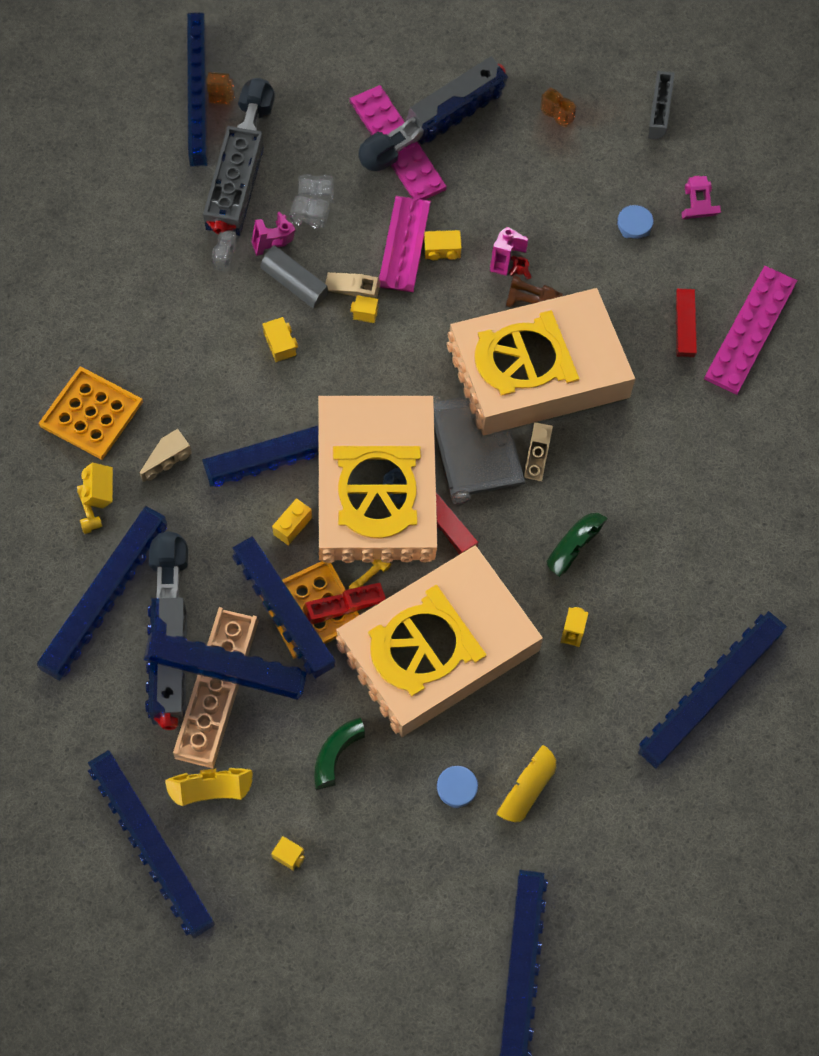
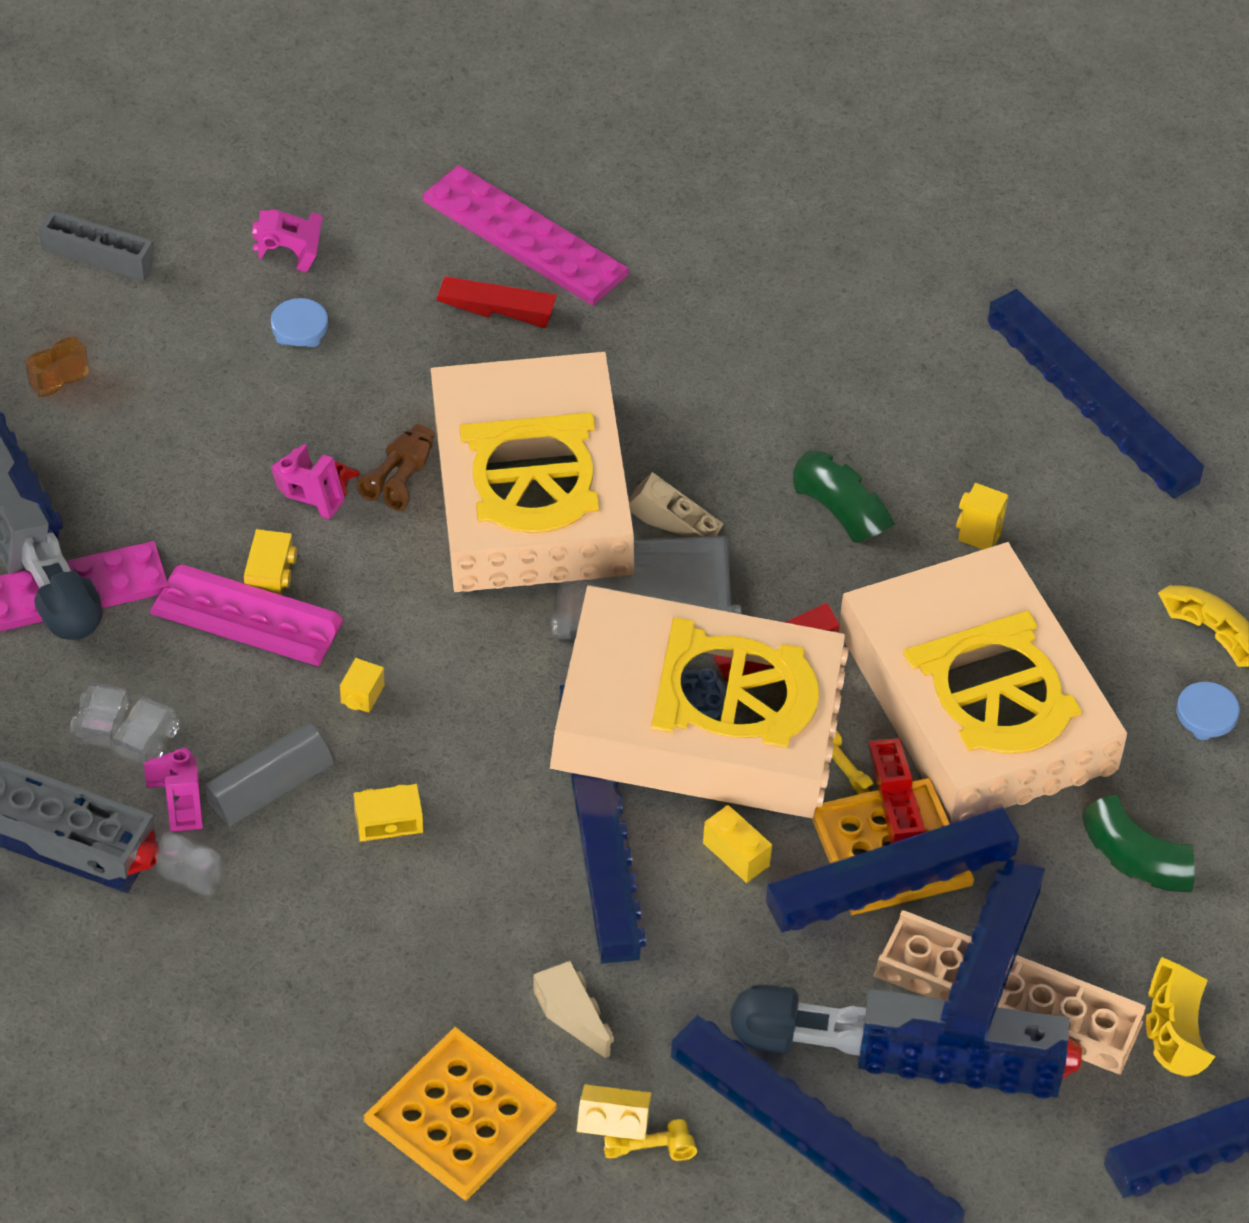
camera: 80 degrees left, 15 degrees down
(353, 284) = (313, 689): tan slope -> none

